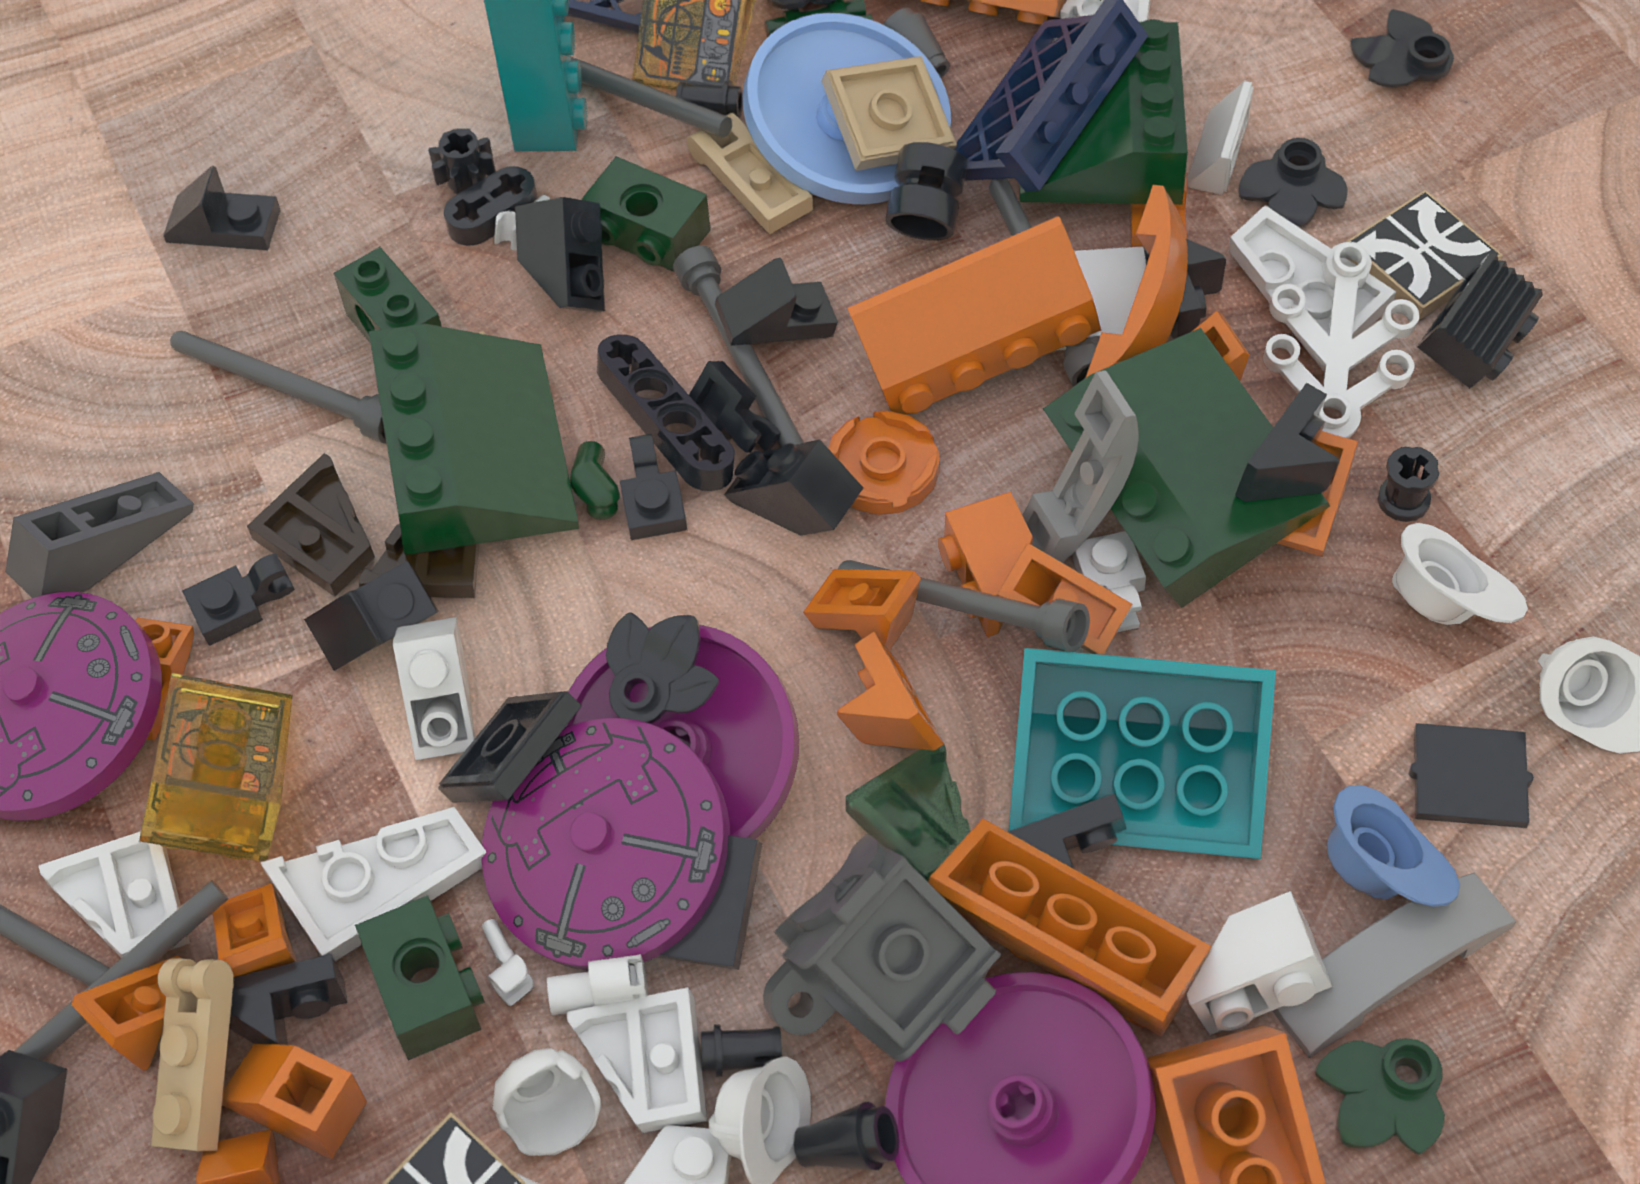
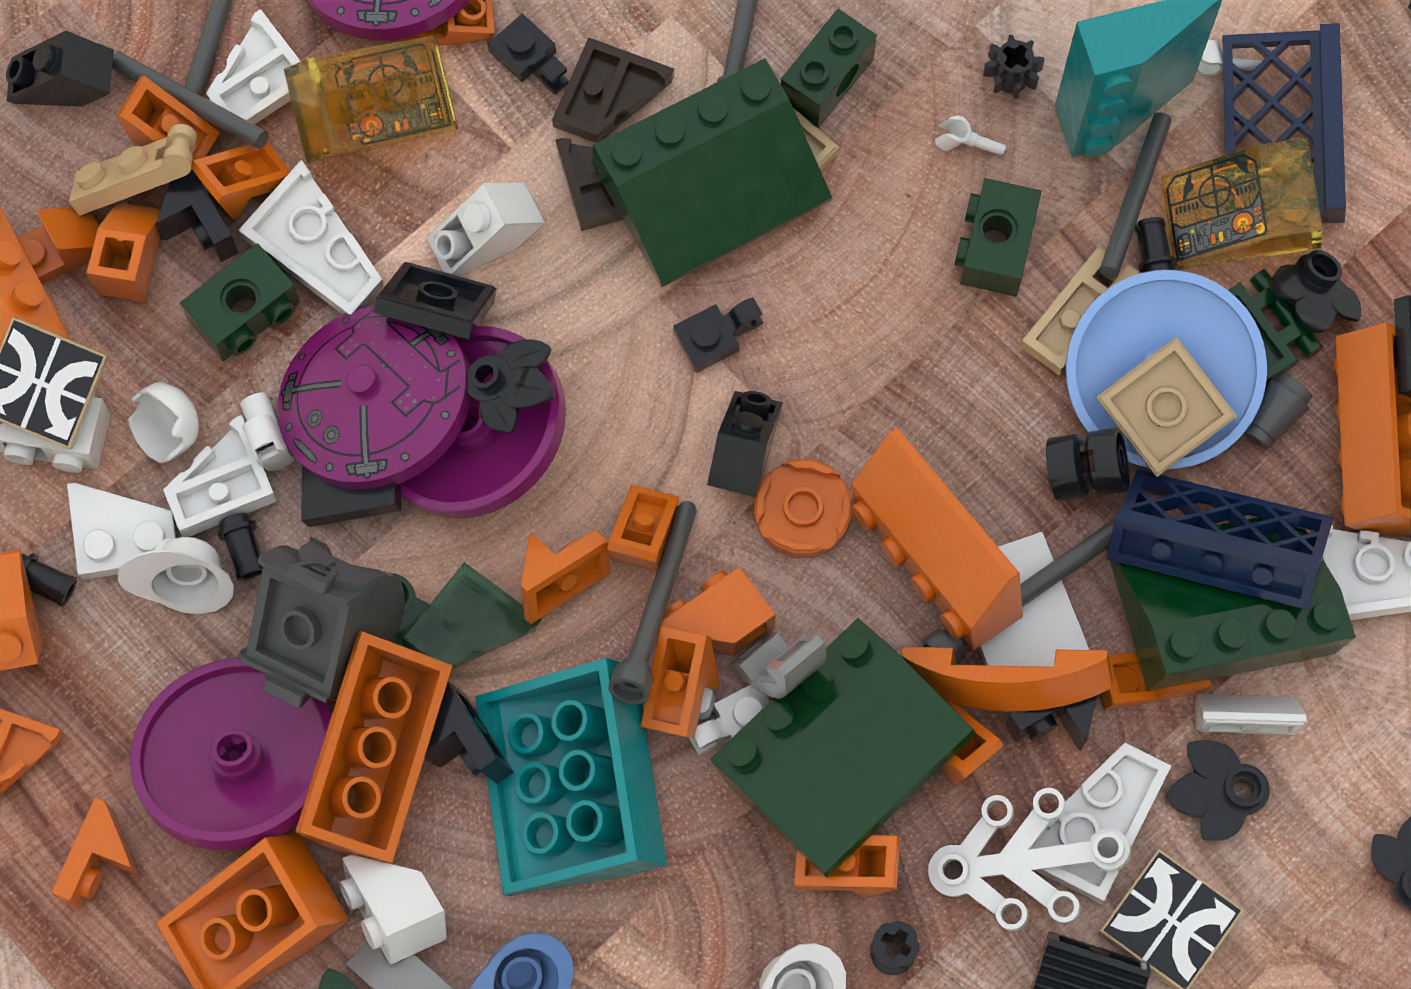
camera: 70 degrees right, 15 degrees up
(370, 615) = (533, 159): black slope -> none
(483, 203) = (979, 107): black beam -> none
(511, 978) = (263, 369): white hand -> none
(563, 250) = (928, 183): black slope -> none
(593, 483) = (710, 281): dark green arm -> none
(676, 406) = (794, 317): black beam -> none
(700, 274) = (952, 302): dark grey piece -> none
(727, 404) = (812, 364): black plate -> none
(773, 309) = (925, 376): black slope -> none
(851, 1139) = (185, 645): black cone -> none
(1288, 458) = (833, 817): black slope -> none

